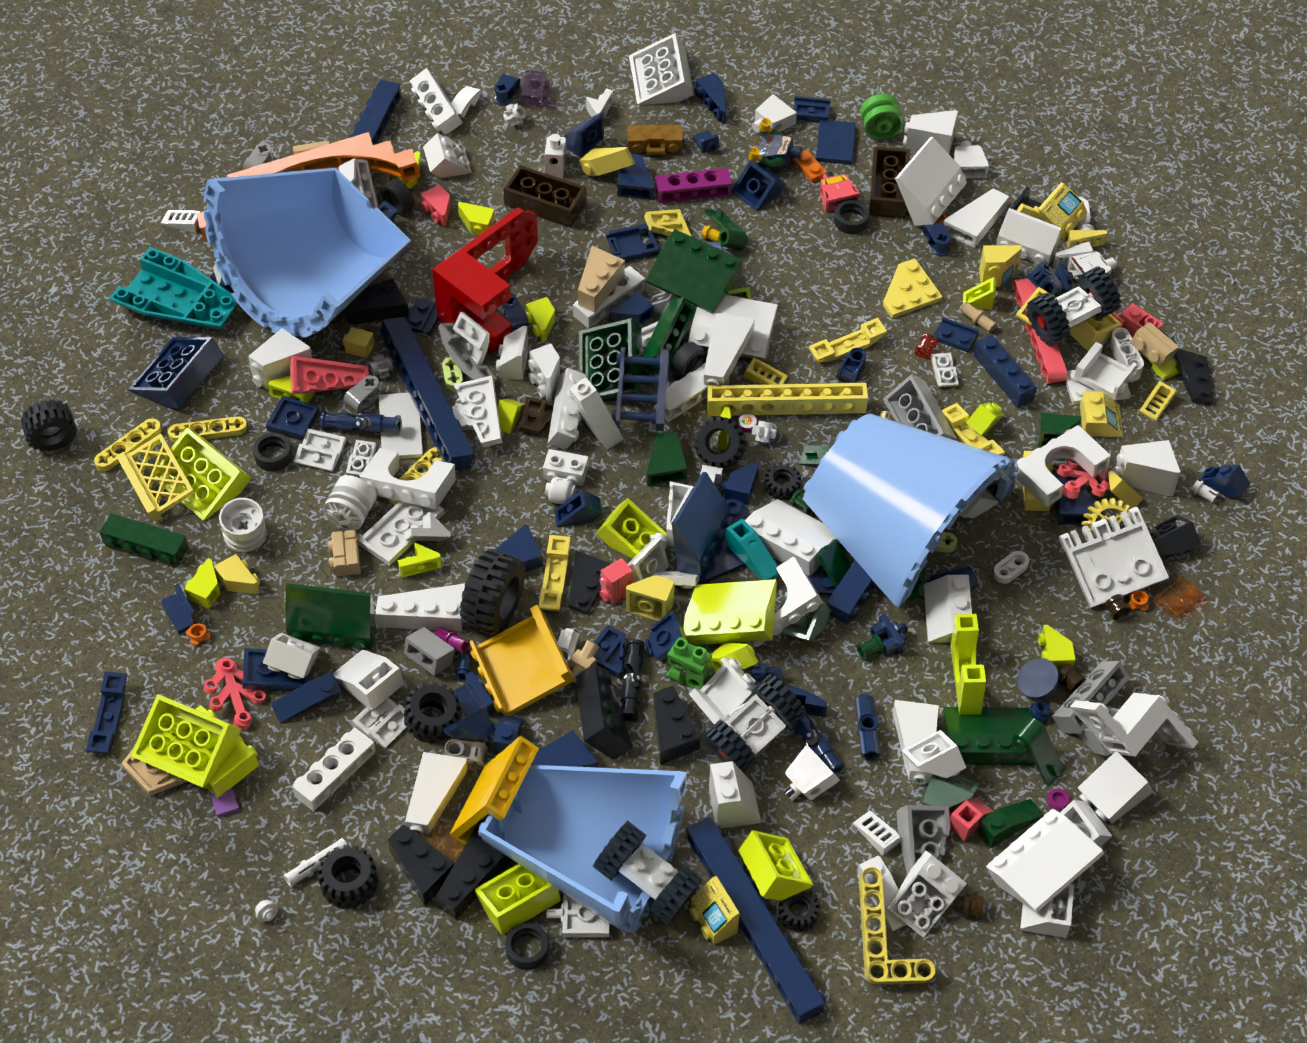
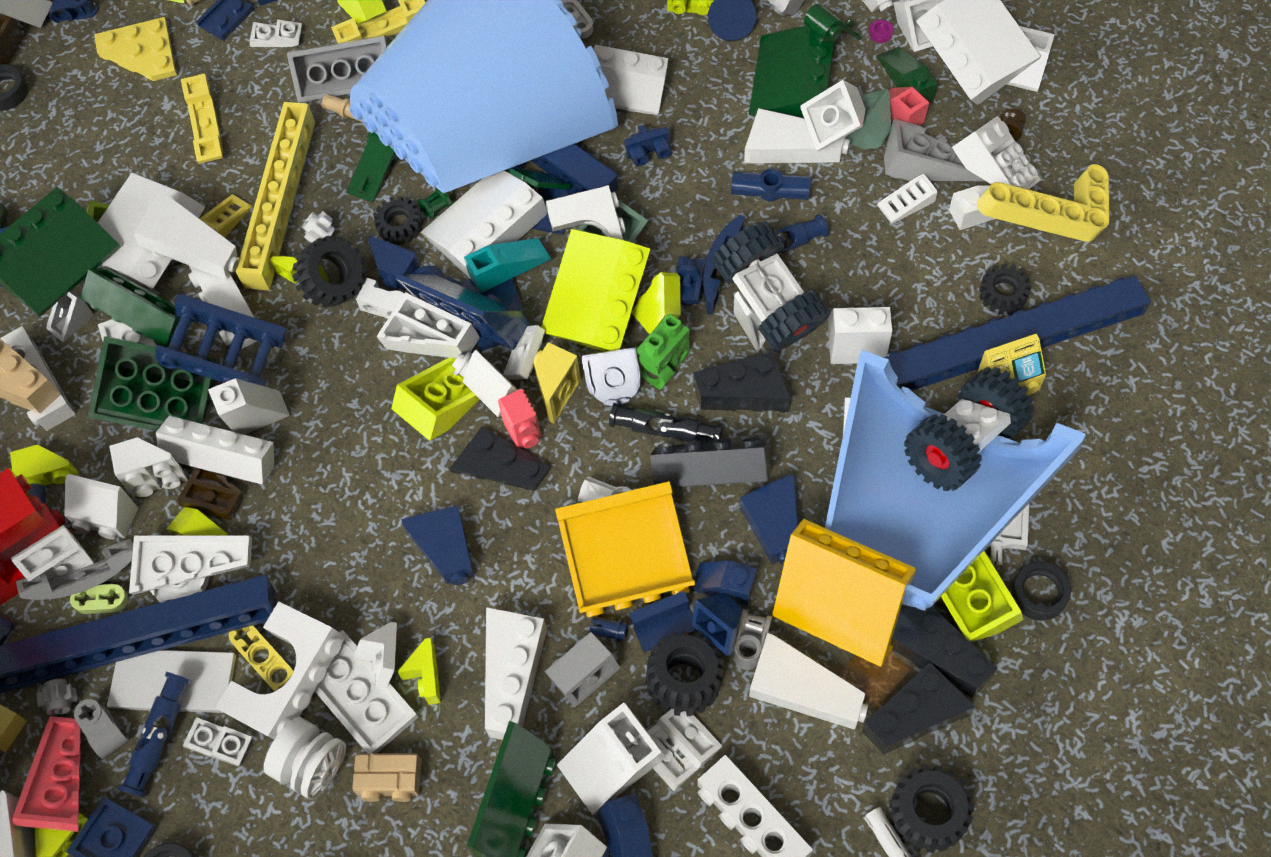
camera: 75 degrees left, 10 degrees up
(320, 450) = (184, 802): white slope -> none
(453, 640) = (567, 638): magenta axle -> none
(492, 592) = (520, 564): black tyre -> none
(555, 573) = (484, 500): light yellow slope -> none
(560, 490) = (350, 474): white head -> none
(565, 466) = (312, 465): white brick -> none
(579, 509) = (387, 458): dark blue slope -> none
(583, 659) = (632, 472): tan axle -> none
(611, 650) = (615, 448): dark blue wing -> none
(633, 307) = (69, 351): dark blue slope -> none
(666, 460) = (330, 342): dark green slope -> none
(688, 359) = (175, 283): black tyre -> none
(724, 691) = (709, 317): white panel -> none
(747, 421) = (292, 245): tile -> none
(774, 866) = (956, 300): neon yellow slope -> none
(809, 776) = (834, 249): torso -> none
(852, 366) = (243, 120): dark blue piece -> none
(870, 647) = (660, 167): dark green bush -> none
(924, 349) = (231, 42): clear red bush -> none
(968, 676) = (689, 77): neon yellow arch -> none
(1040, 711) = (770, 24): dark blue plate -> none

